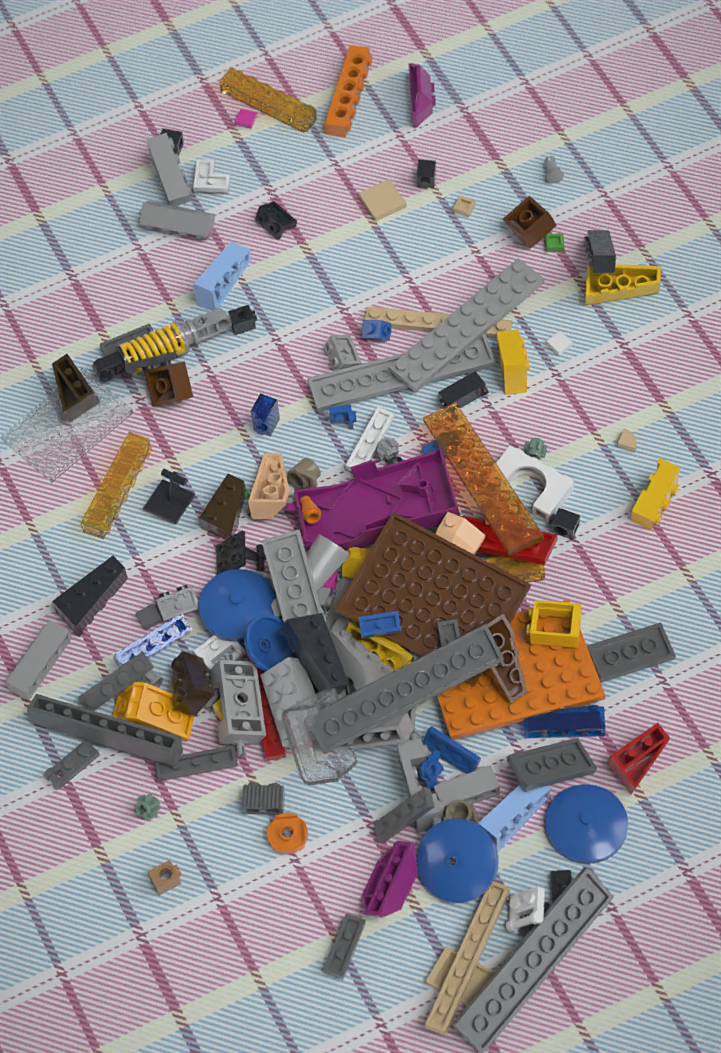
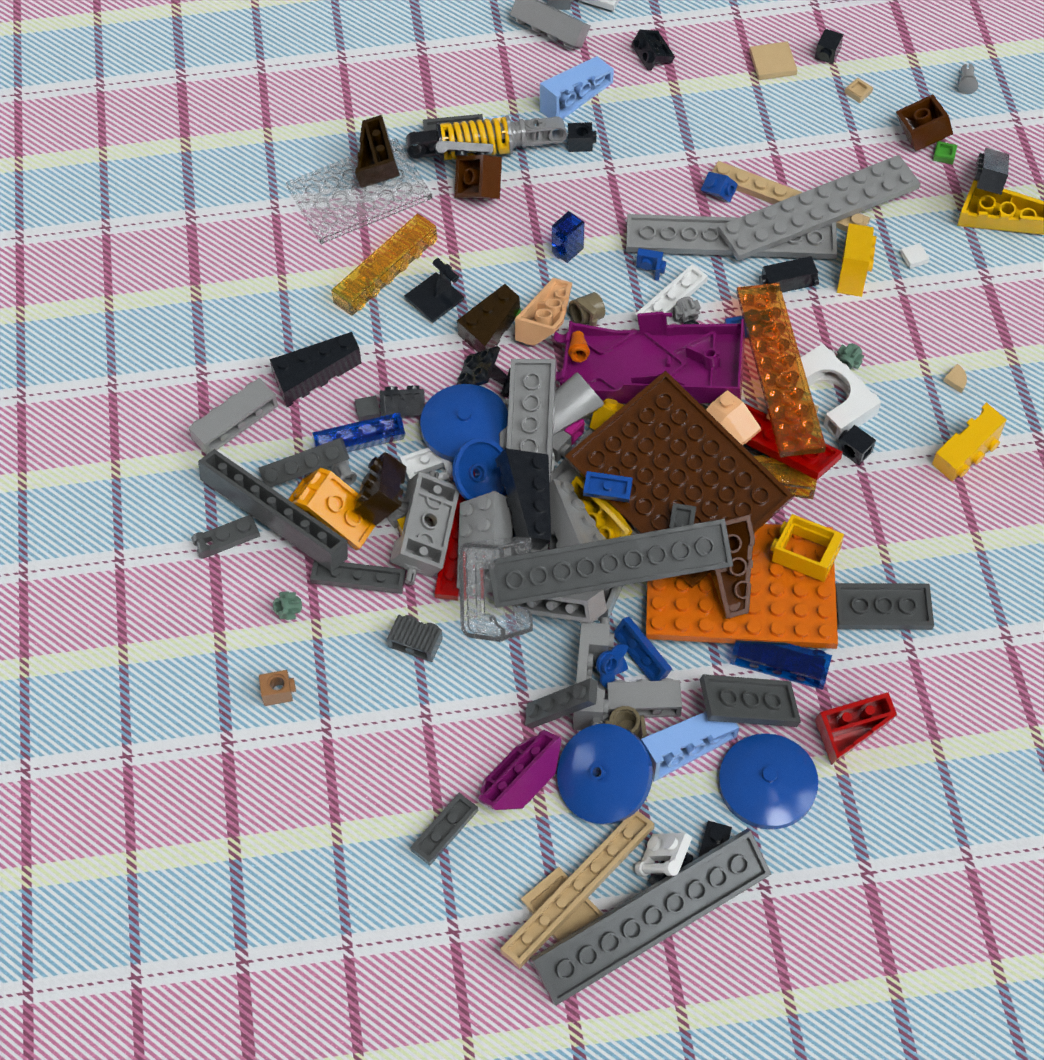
camera: 15 degrees right, 0 degrees up
(293, 843) = (430, 696): orange plate -> none
(341, 352) = (674, 198): light grey bracket -> none

